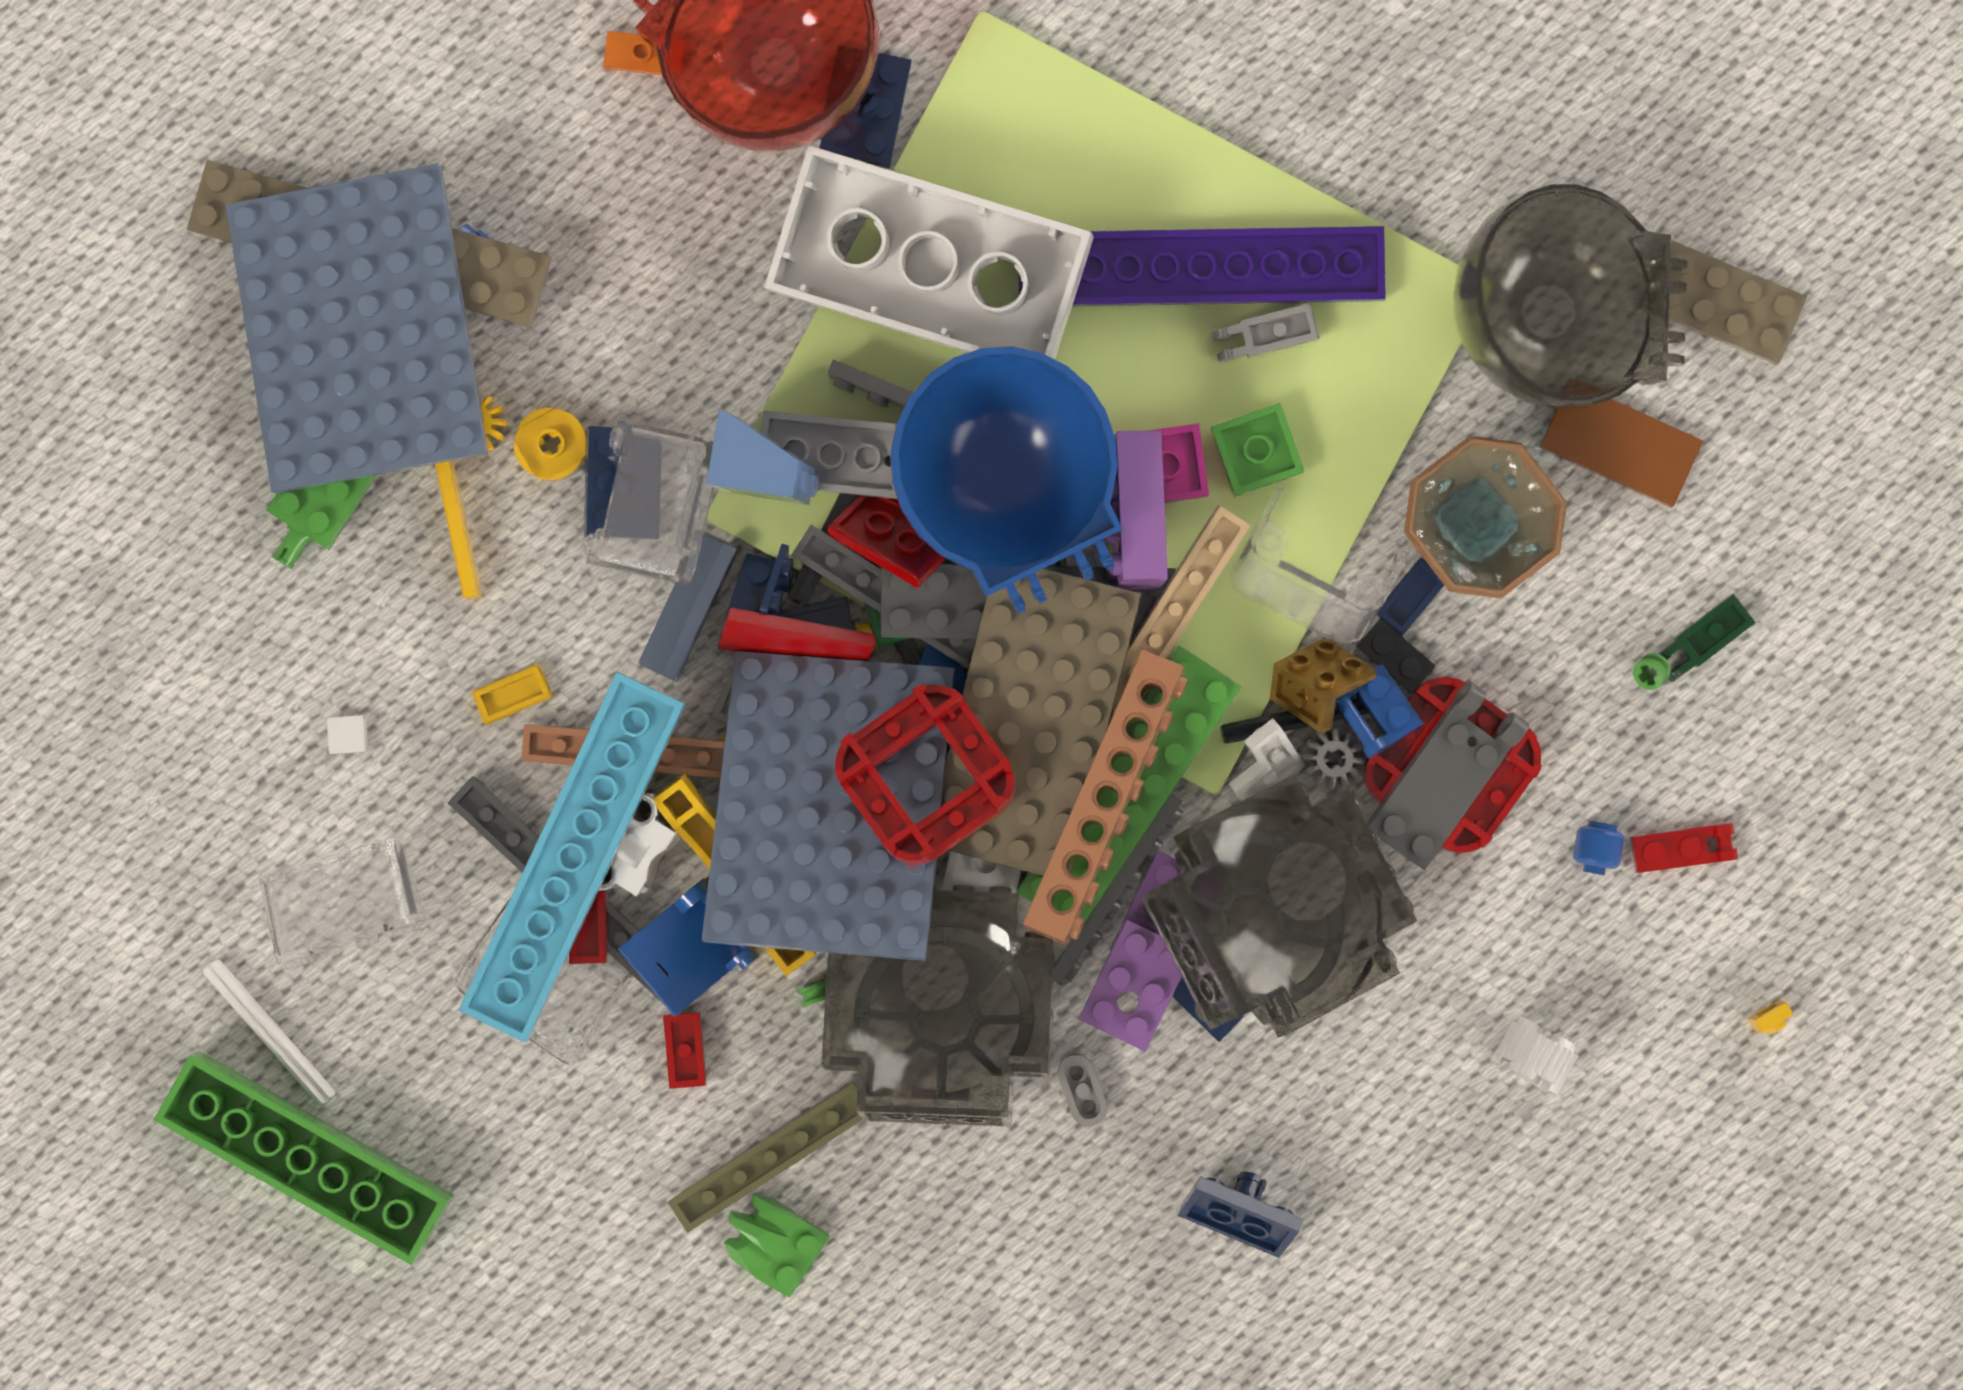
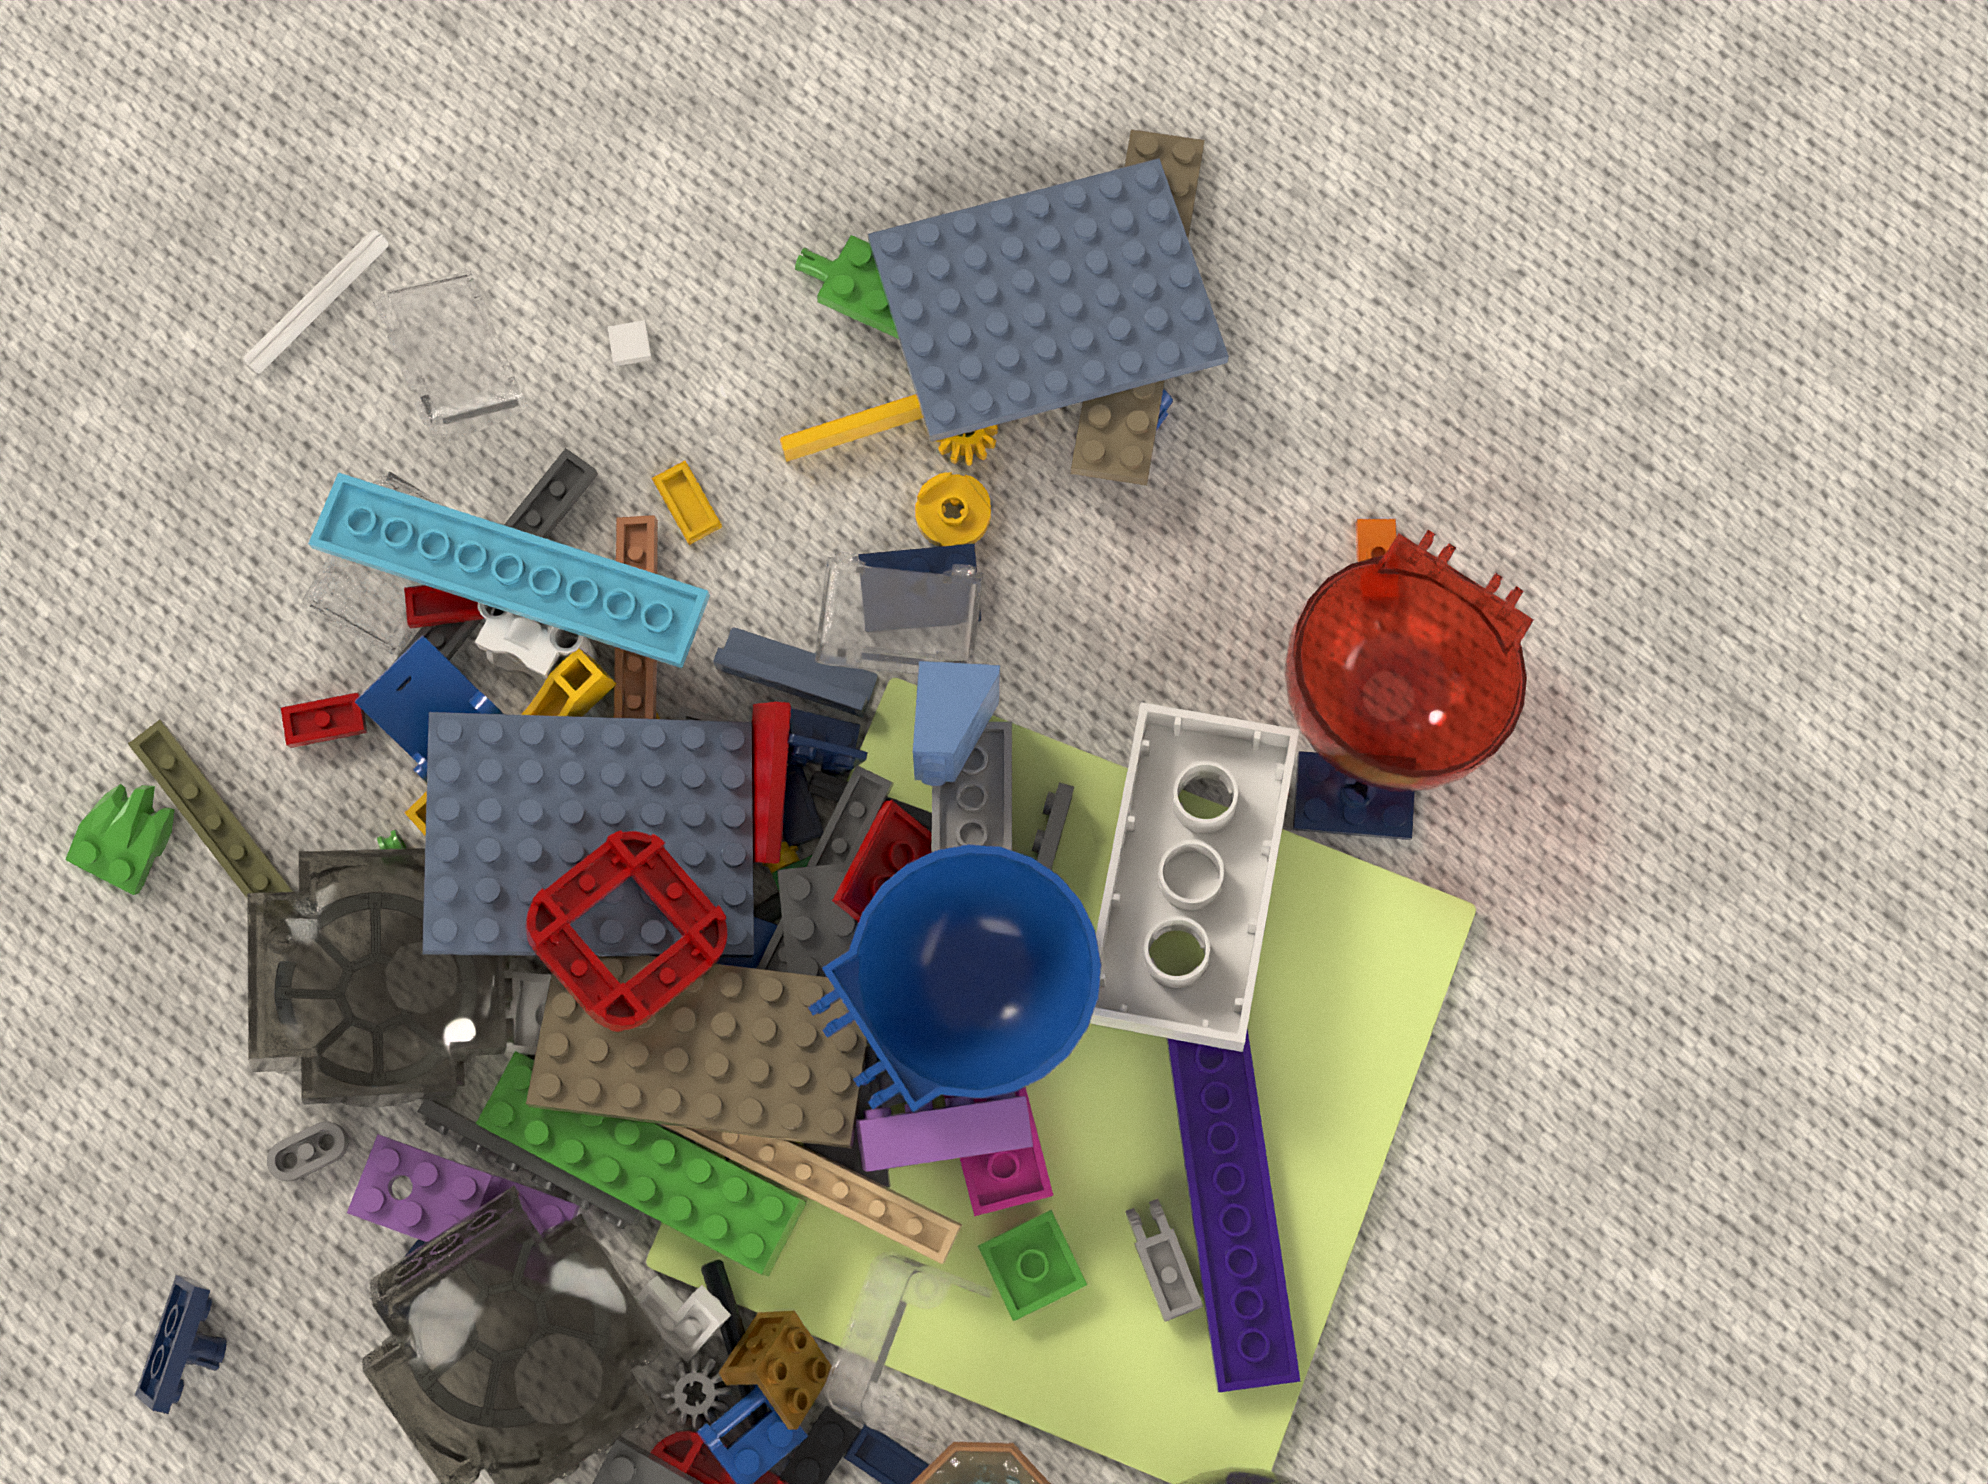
camera: 80 degrees right, 10 degrees down
(304, 1157) = (184, 348): bright green brick -> none
(1148, 673) = (480, 1074): nougat brick -> none

